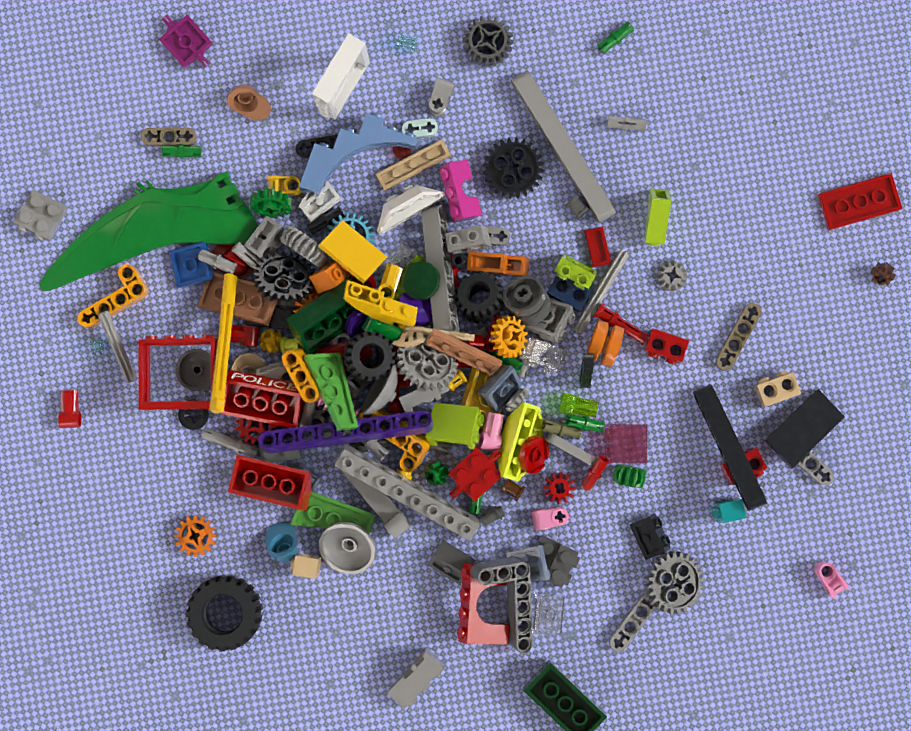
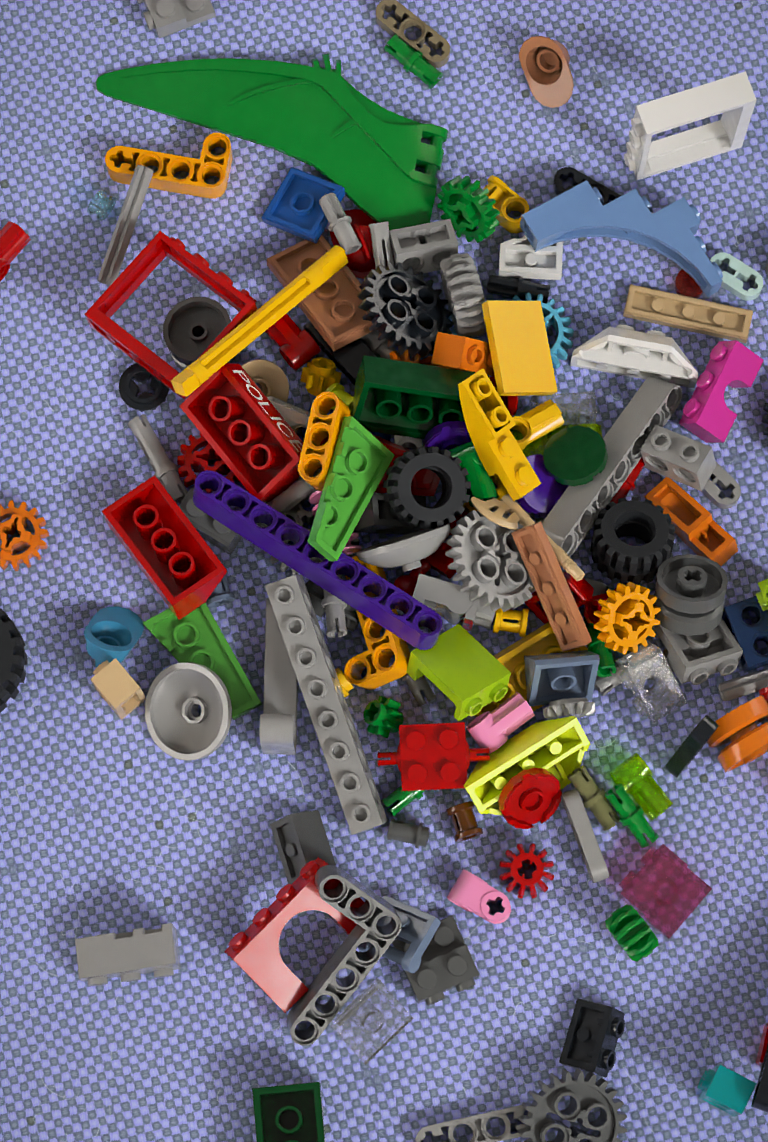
camera: 40 degrees right, 10 degrees down
(455, 260) = (649, 472): black pin -> none
(595, 473) = (589, 891): red axle -> none

